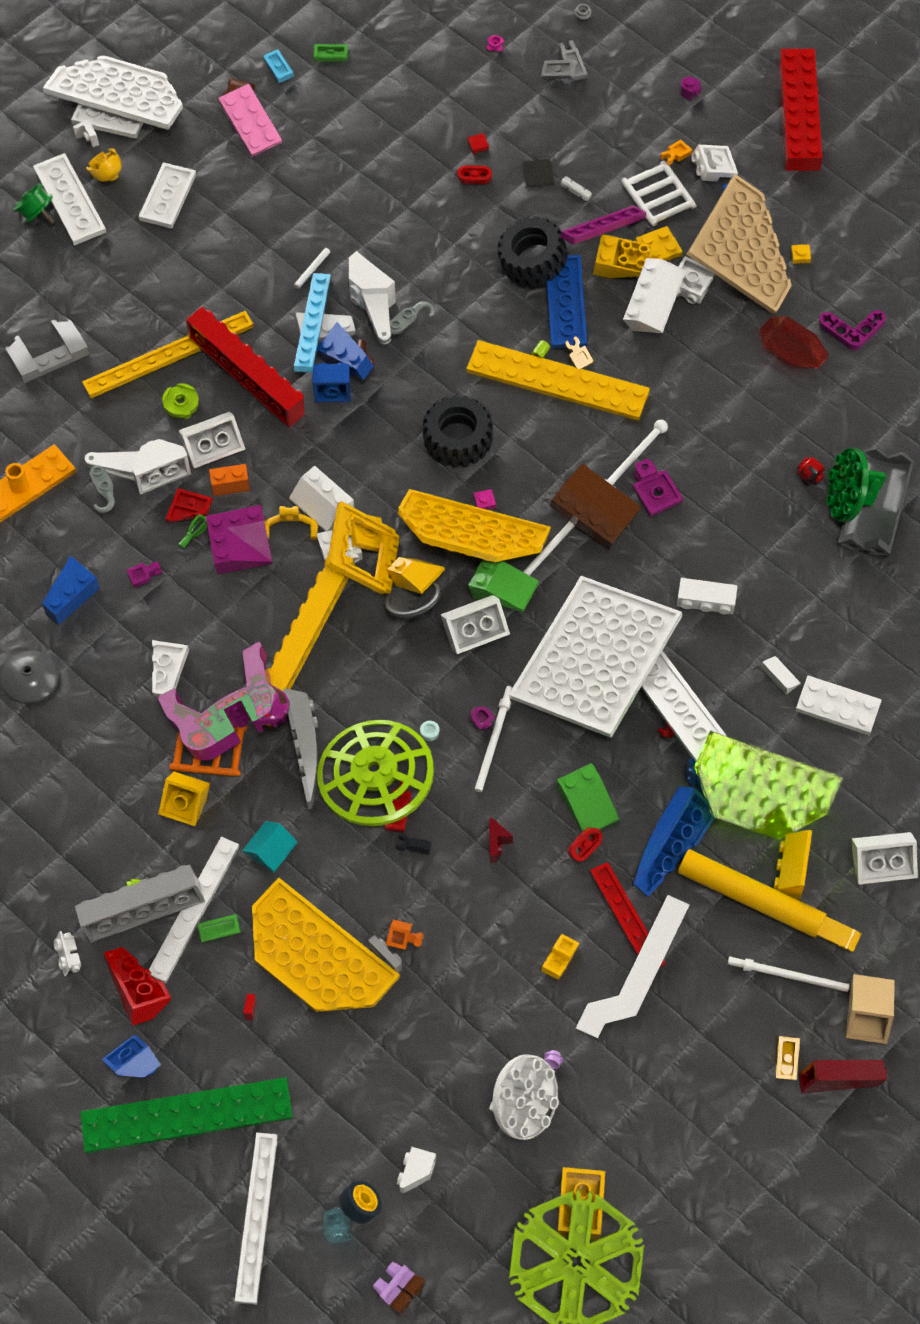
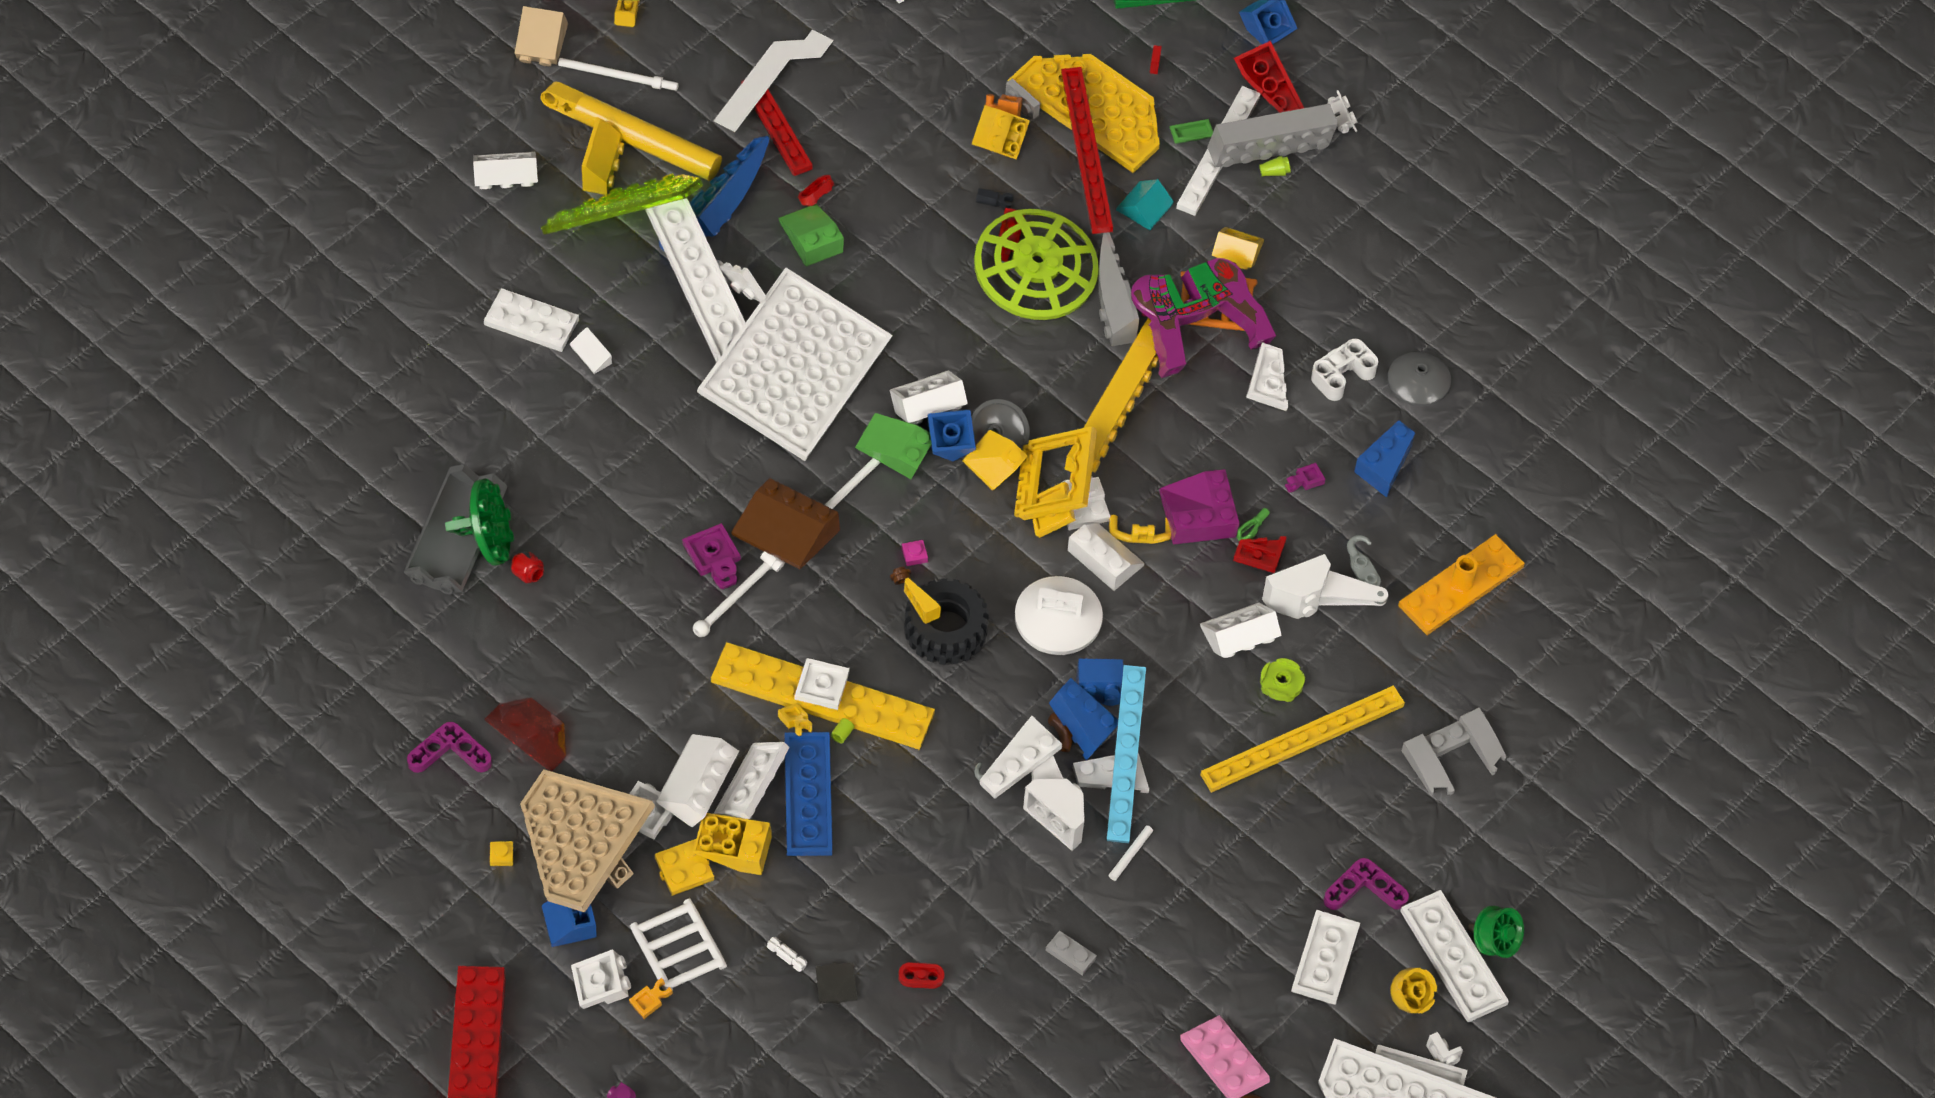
camera: 175 degrees right, 5 degrees down
(100, 682) = (1338, 362): none -> white beam
(131, 253) = (1361, 879): none -> magenta beam
(229, 480) = (1215, 577): orange brick -> none
(246, 366) = (1207, 698): red brick -> none
(324, 885) = (1086, 150): none -> red plate
(361, 196) = (1071, 953): none -> light grey plate
(363, 447) = (1058, 615): none -> white bracket
(391, 317) = (1020, 757): none -> white wing
(408, 904) = (1000, 132): none -> yellow slope
(429, 730) = (978, 309): light aqua tile -> none
(455, 584) = (951, 434): none -> blue slope
(470, 528) = (933, 502): yellow plate -> none
(477, 418) = (924, 605): none -> yellow slope
(478, 143) = (915, 1027): red tile -> none
(481, 717) = (922, 312): magenta plate -> none
(496, 476) = (900, 574): none -> reddish brown plate
(497, 836) = (906, 199): dark red slope -> none
(504, 706) = (897, 328): white bar -> none
(537, 268) = (838, 865): black tyre -> none
(553, 1058) = (857, 9): lavender plate -> none
(558, 374) = (822, 683): none -> white plate
(560, 956) = (846, 96): yellow slope -> none
(603, 224) = (755, 870): magenta plate -> none
(610, 302) = (752, 779): none -> white plate
(654, 719) = (741, 281): none -> white wing
(707, 596) = (664, 431): white brick -> none

